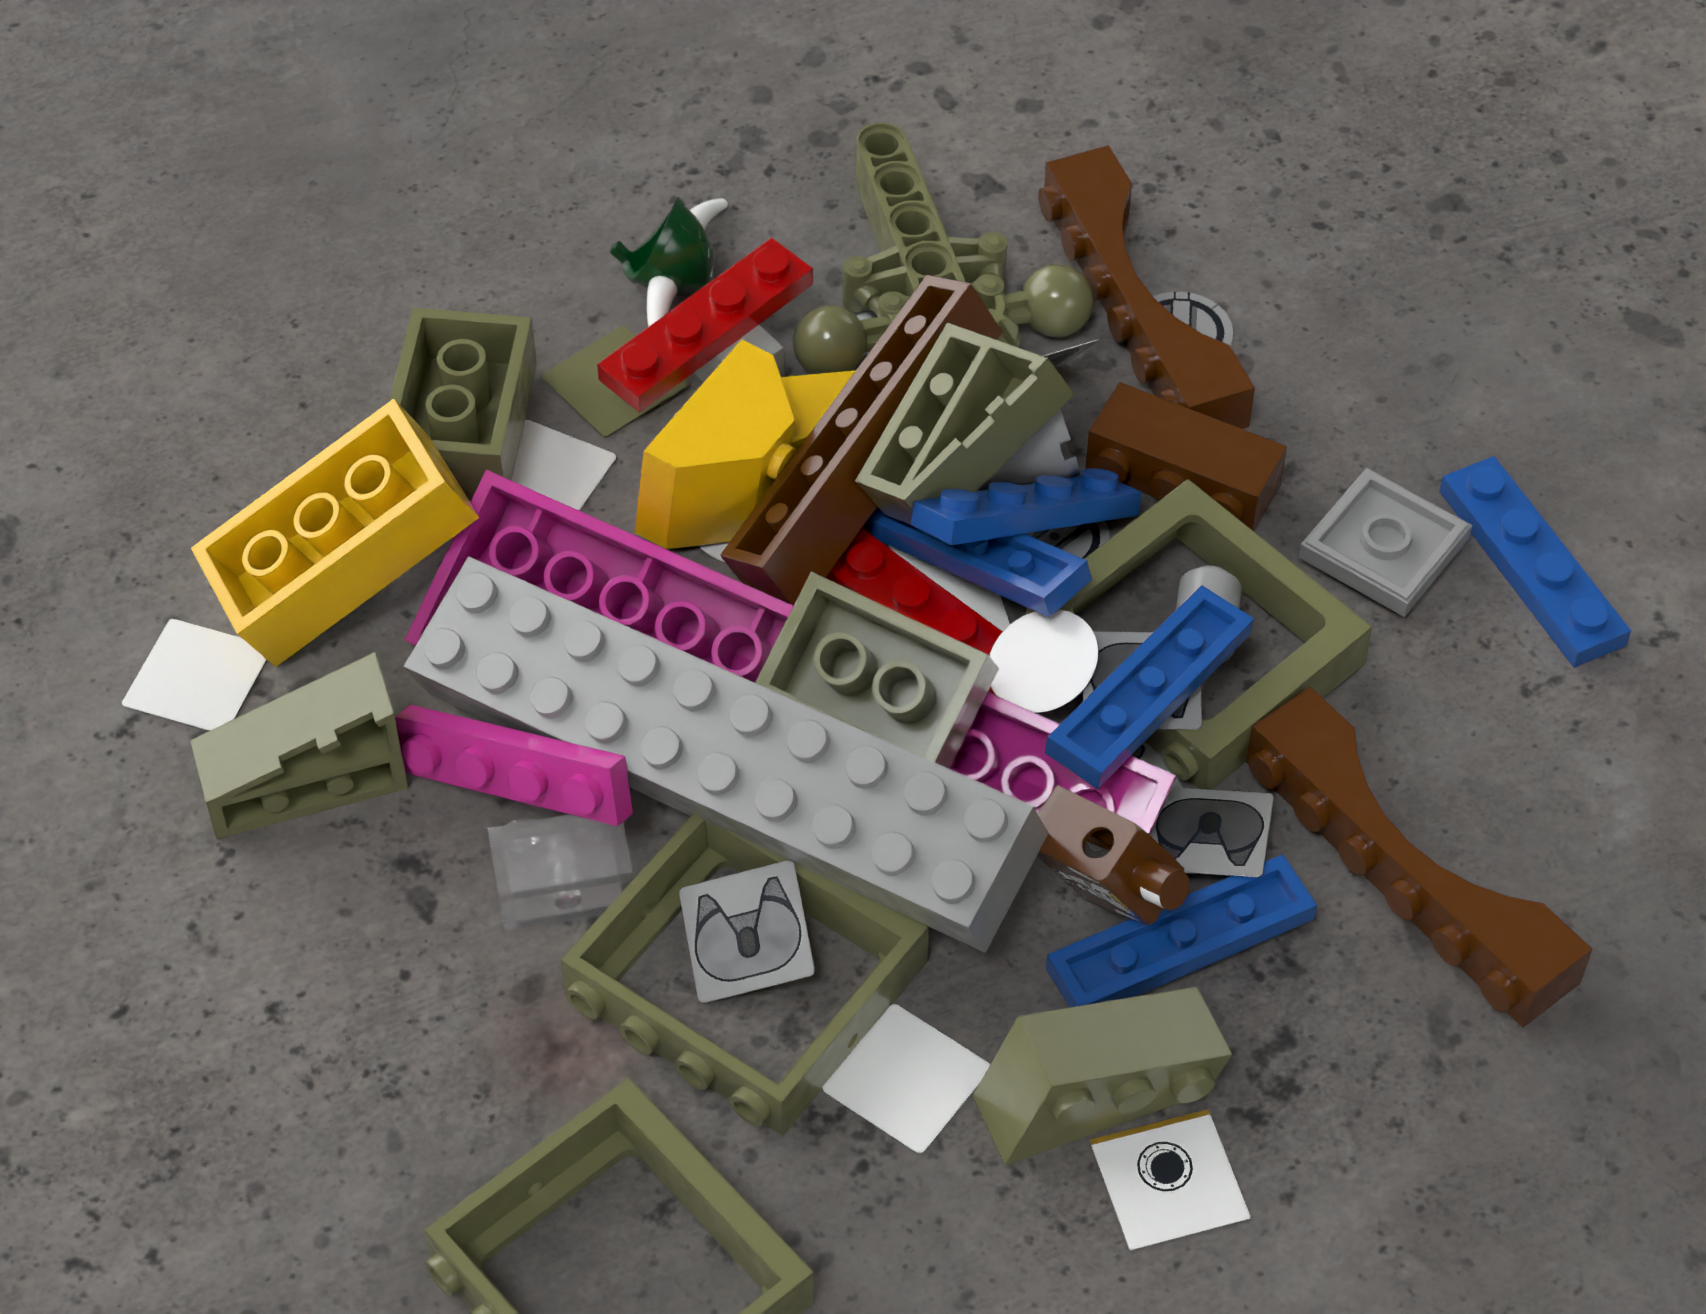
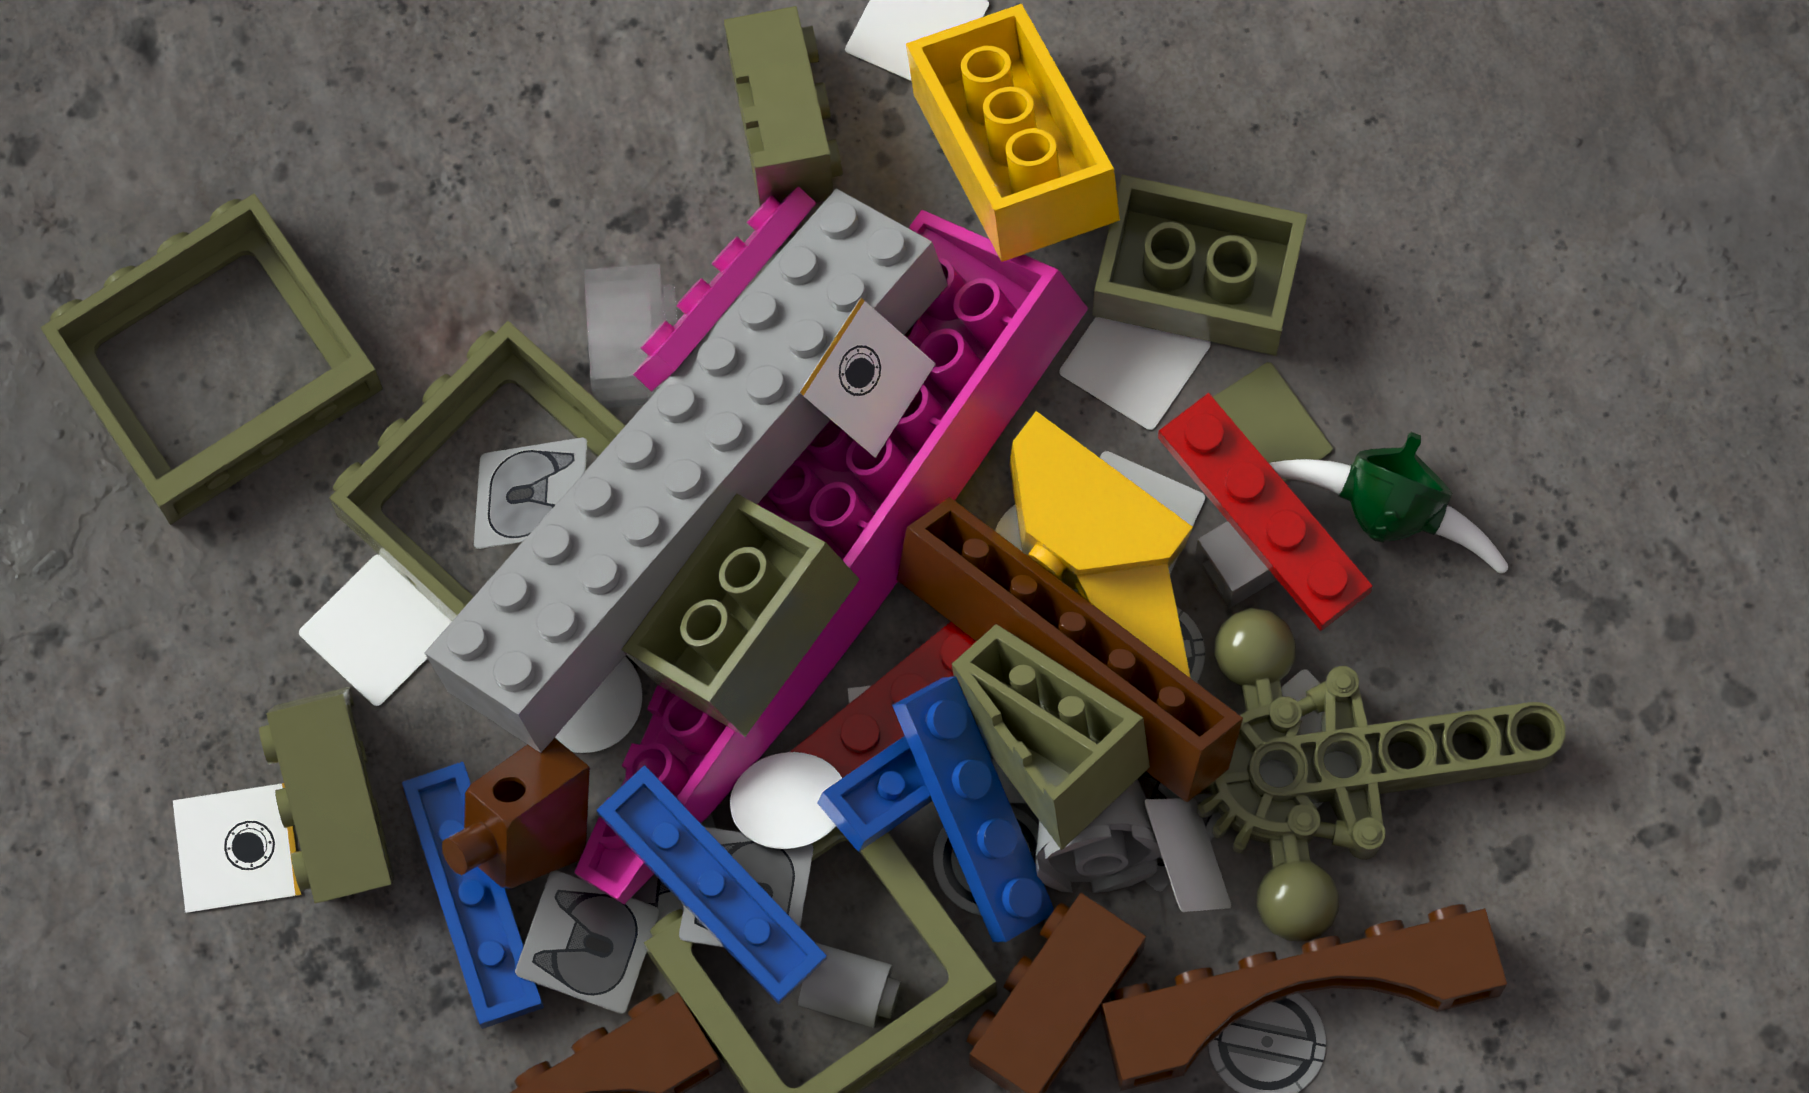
camera: 100 degrees right, 20 degrees up
(613, 603) = (867, 377): none -> white sticker

